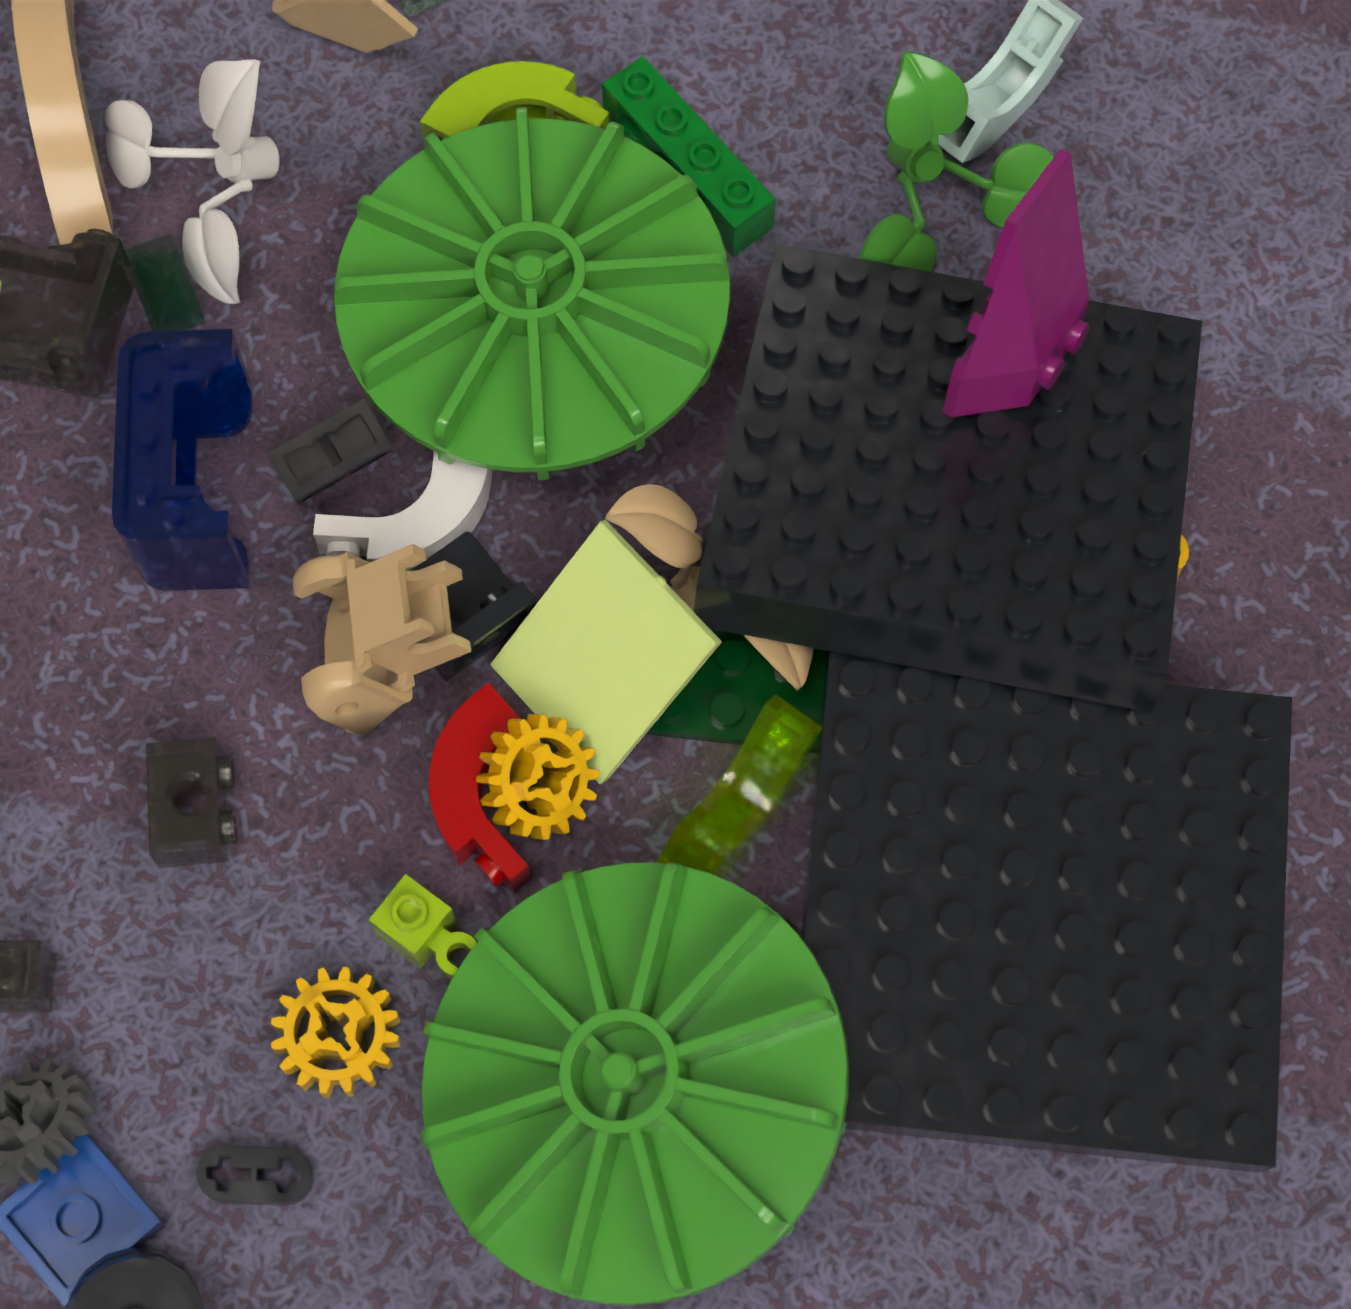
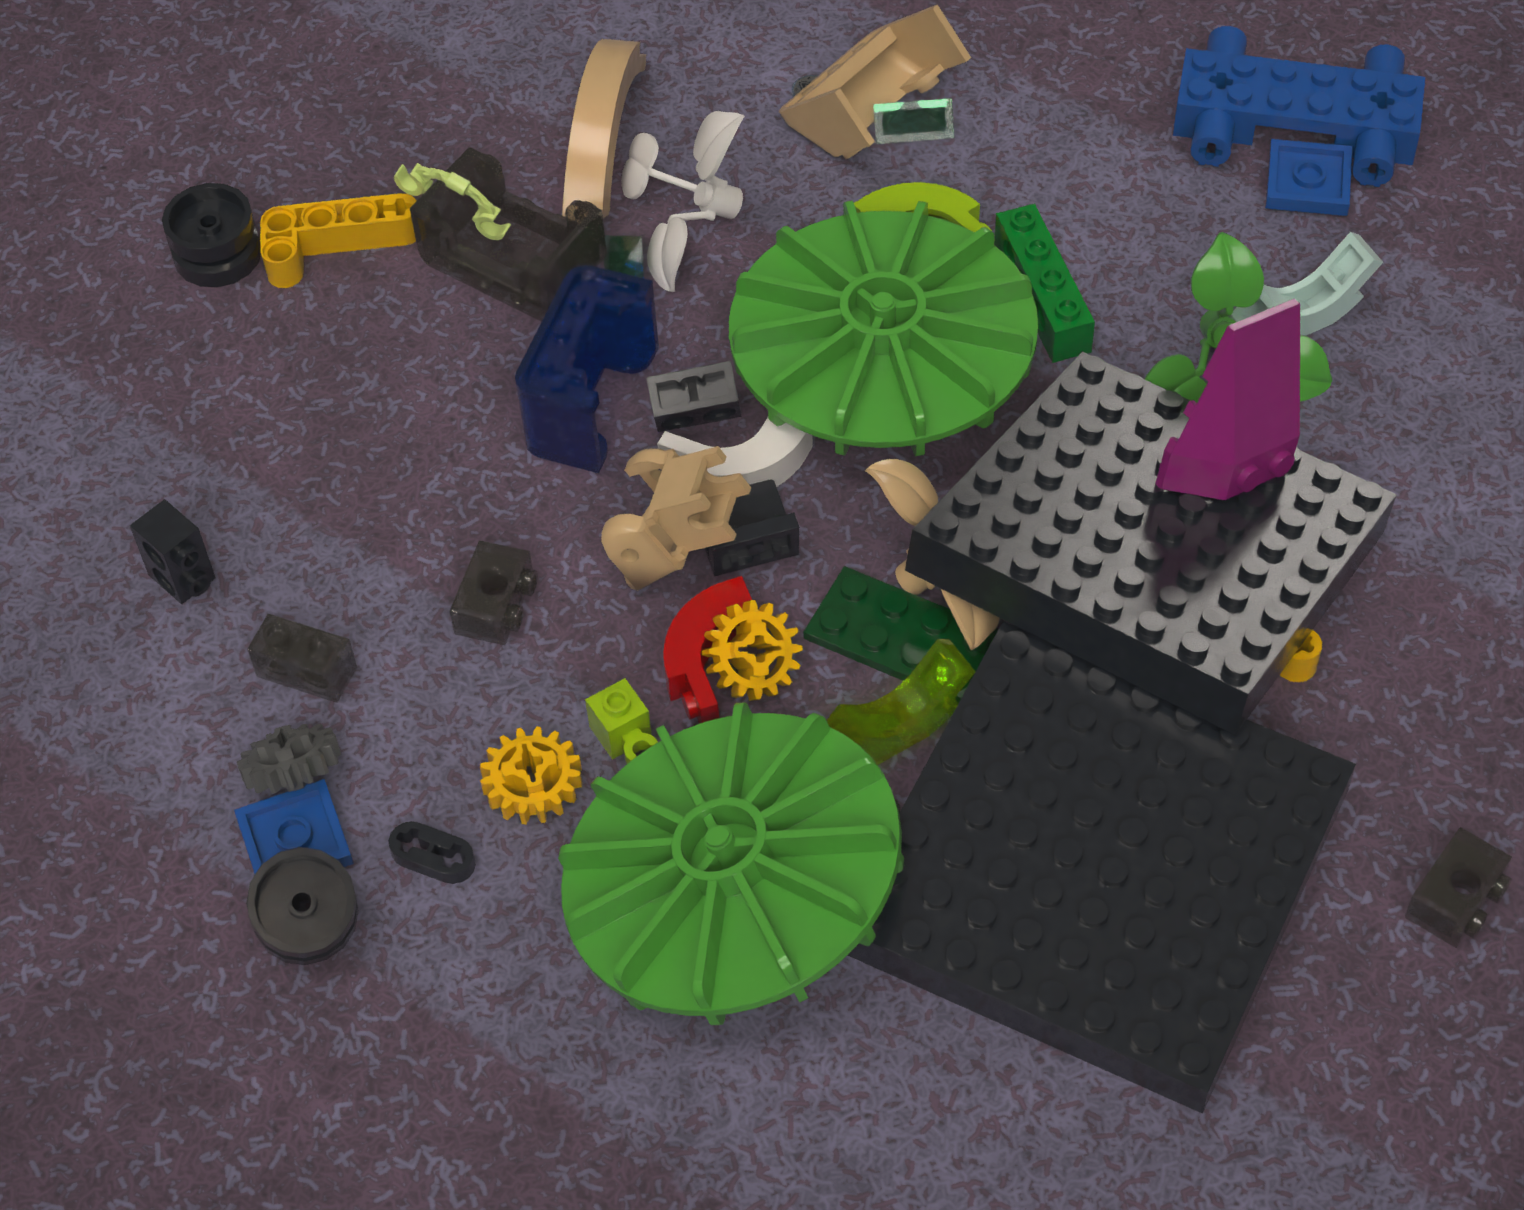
camera: 25 degrees right, 15 degrees down
(606, 648) = (837, 576): yellowish green piece -> none

